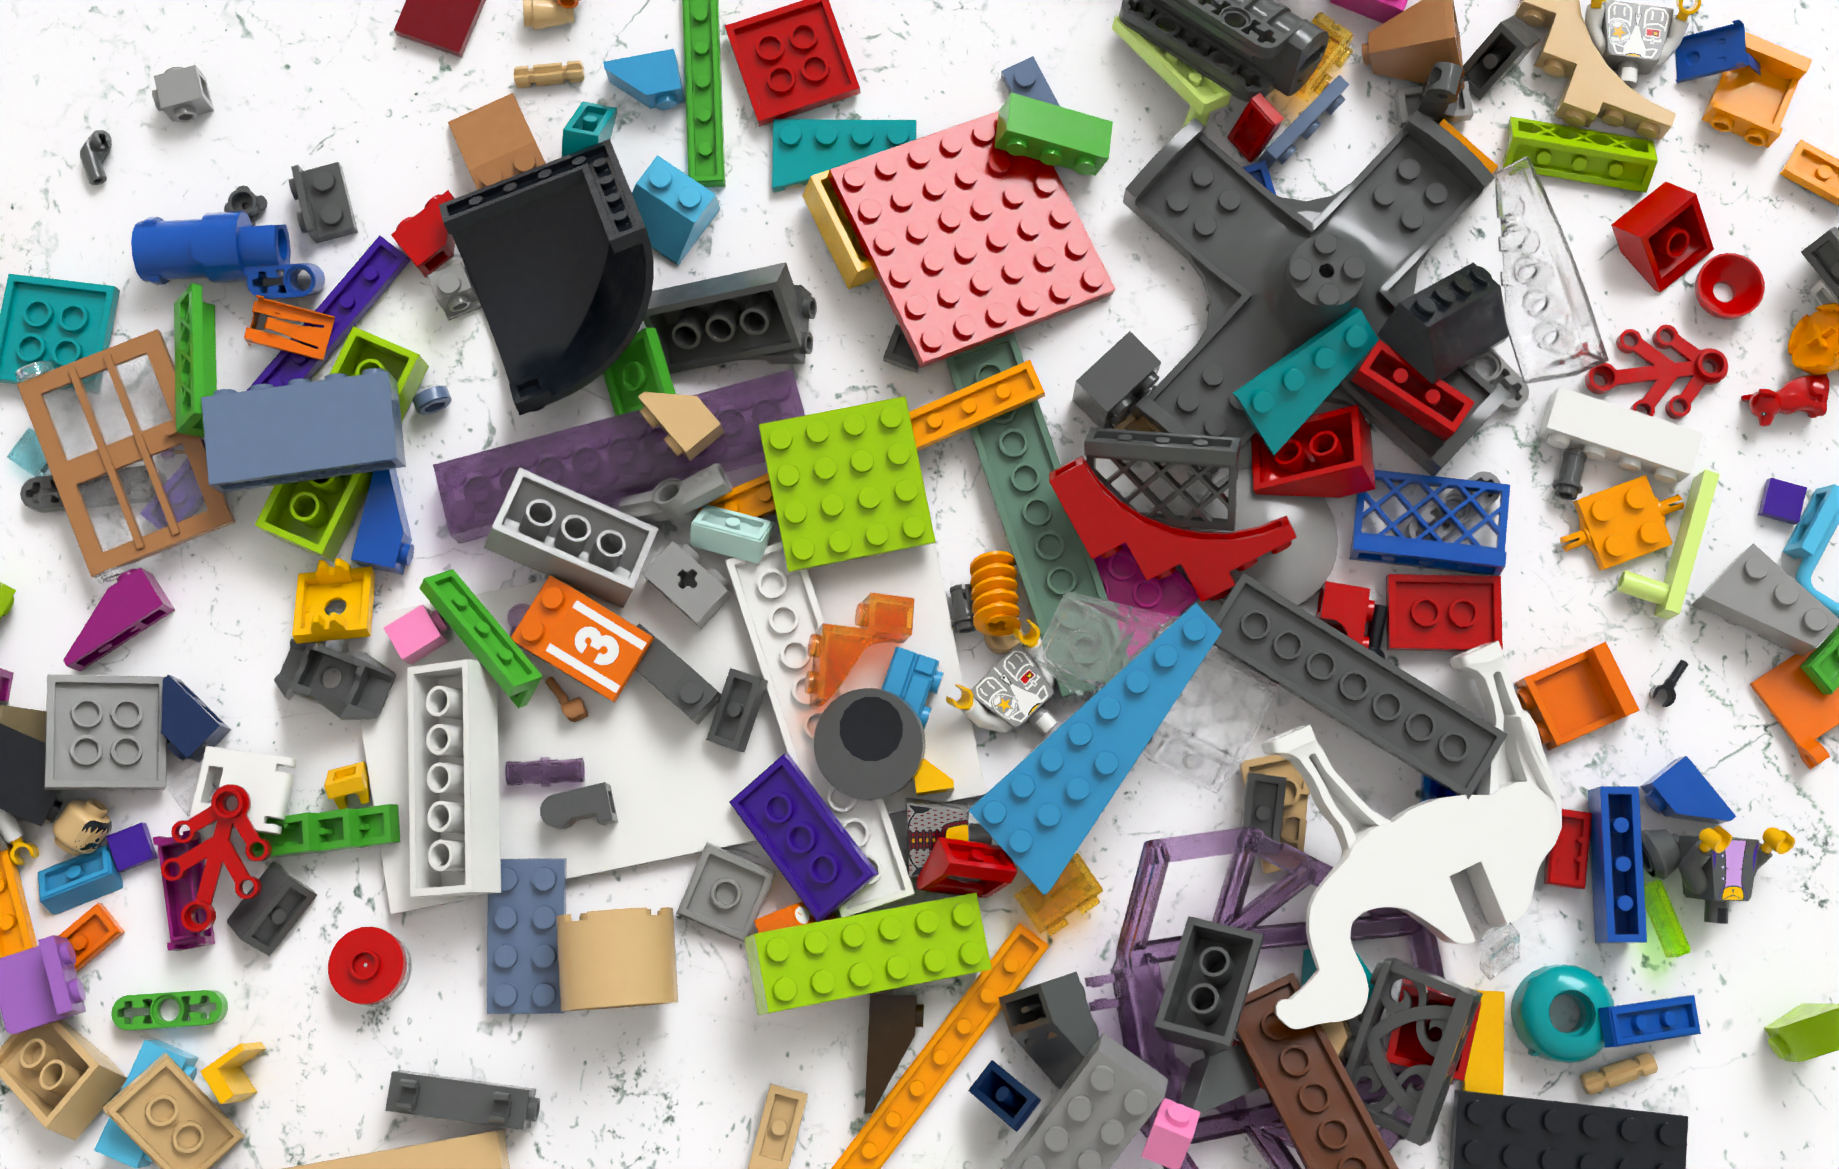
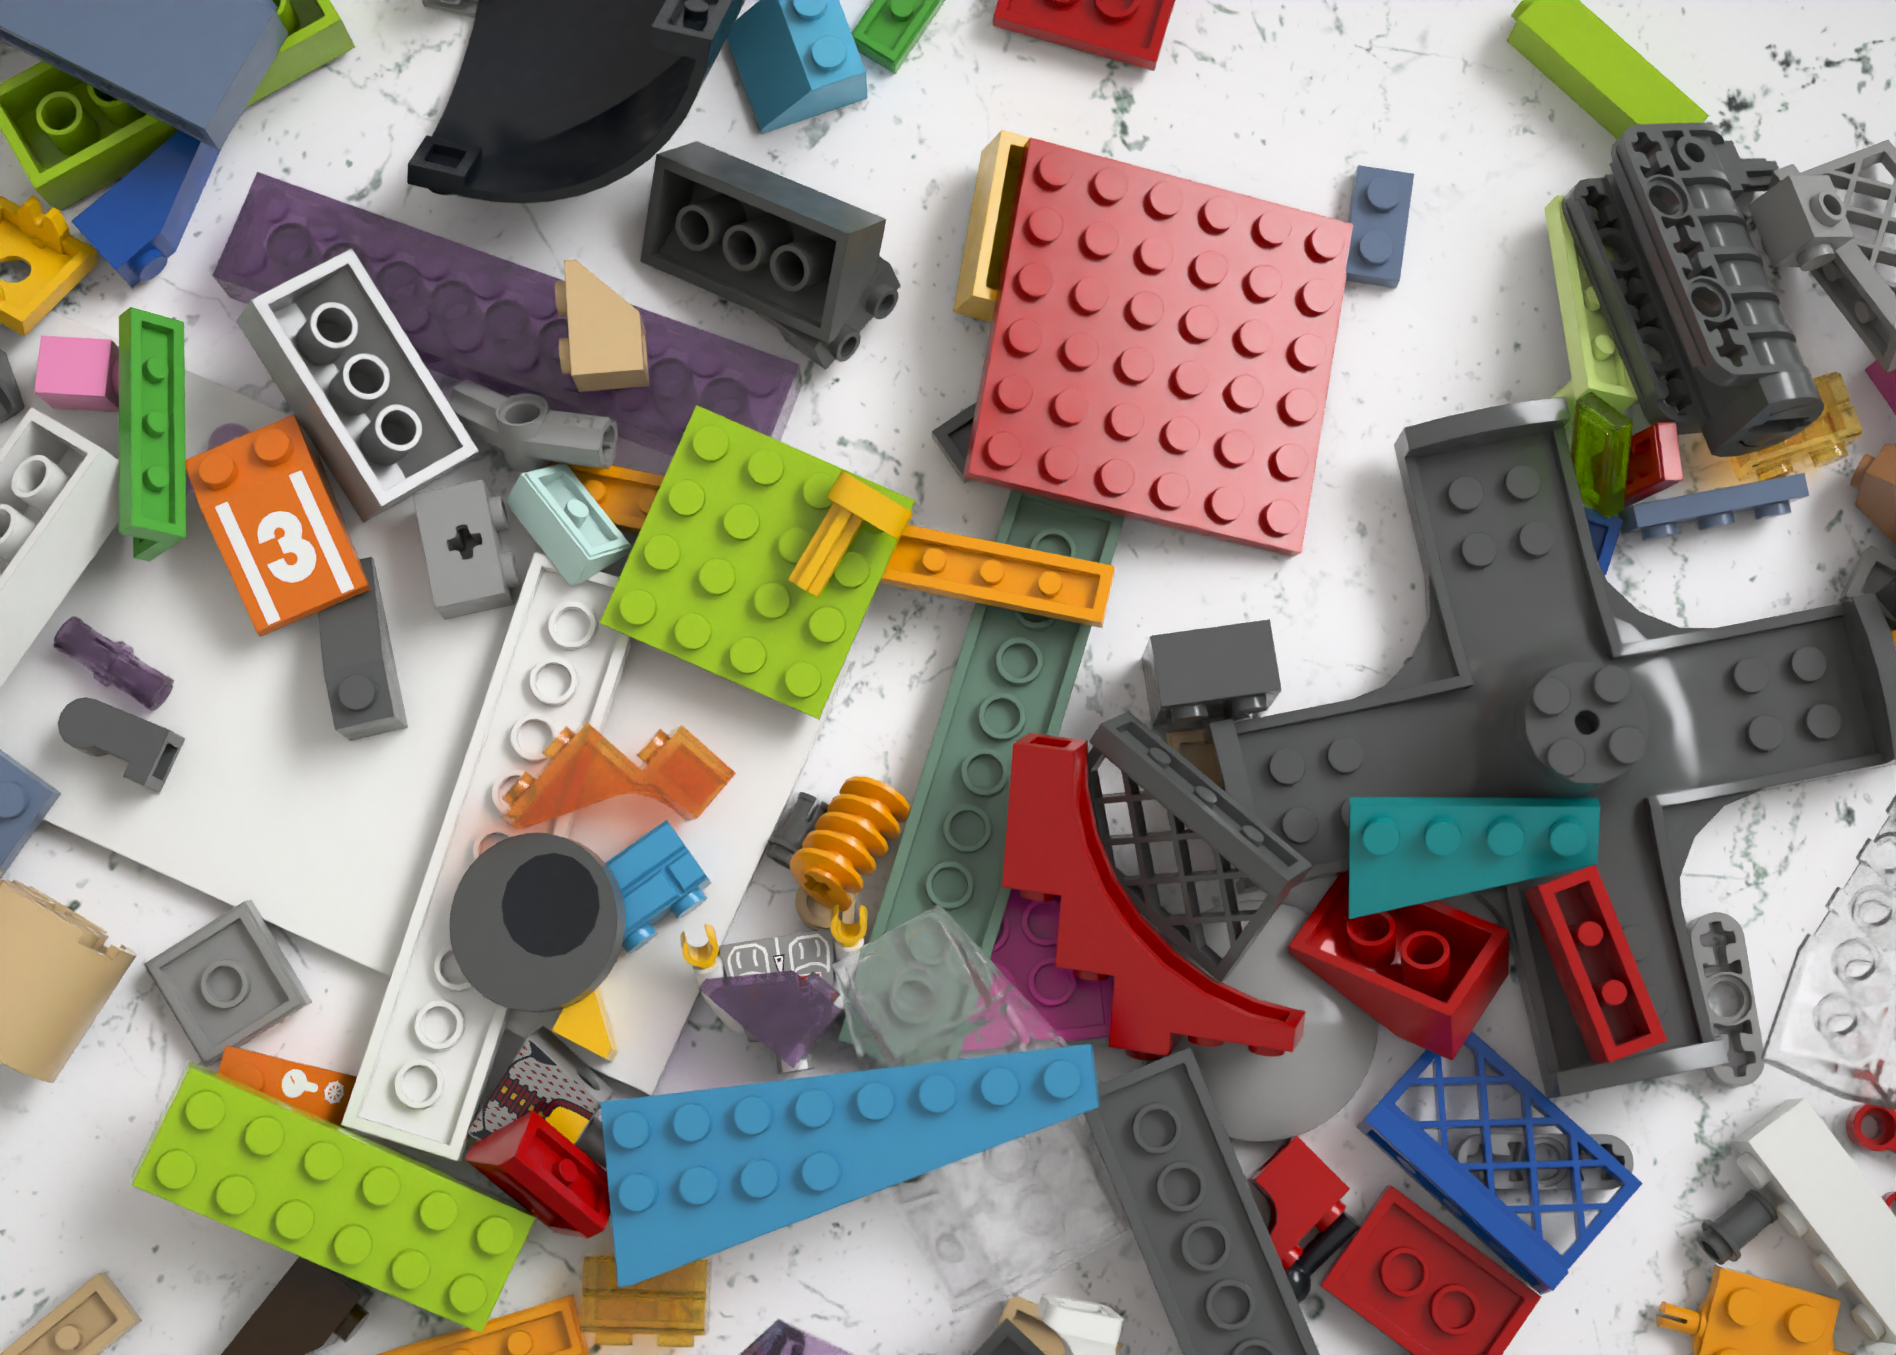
camera: 30 degrees right, 0 degrees up
(432, 400) = (324, 91): sand blue tile -> none
(573, 709) = (207, 609): medium nougat hand -> none
(638, 371) = (603, 232): bright green plate -> none
(737, 710) = (407, 757): dark grey plate -> none
(803, 838) = (368, 985): dark purple tile -> none
(816, 146) = (1048, 99): teal wing -> none
(878, 418) = (850, 508): none -> yellow piece
(1024, 700) = (779, 1009): none -> clear purple slope
(1053, 134) = (1362, 293): bright green brick -> none
(1232, 133) = (1601, 453): none -> clear neon green tile
(1448, 323) = (1709, 908): black slope -> none

